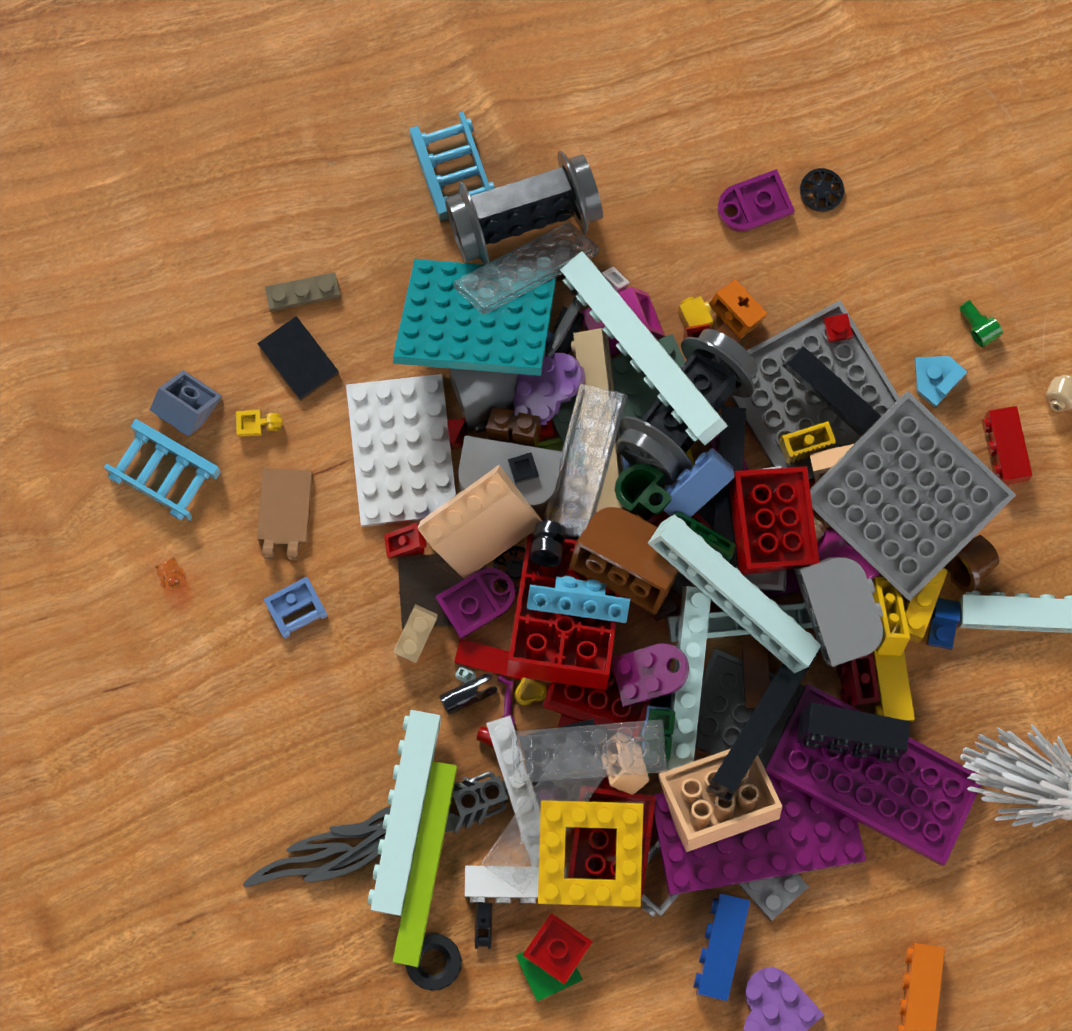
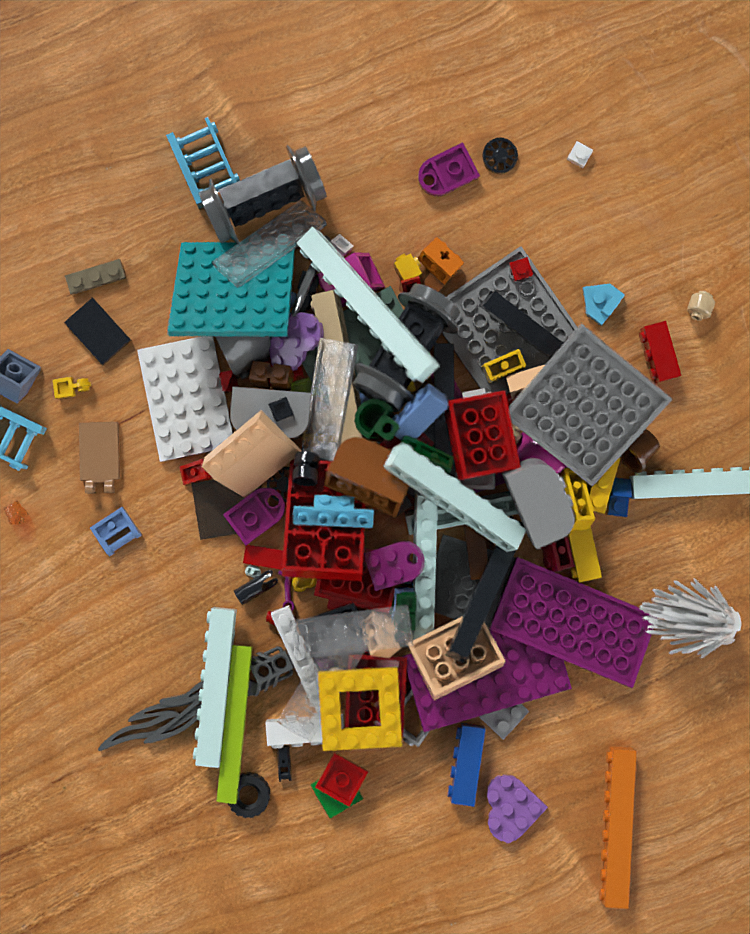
camera: 10 degrees left, 10 degrees up
(415, 633) = (210, 545): tan brick -> none
(853, 732) = (557, 596): black brick -> none
(921, 197) = (579, 154): none -> white plate
(983, 329) = (635, 258): green pin -> none

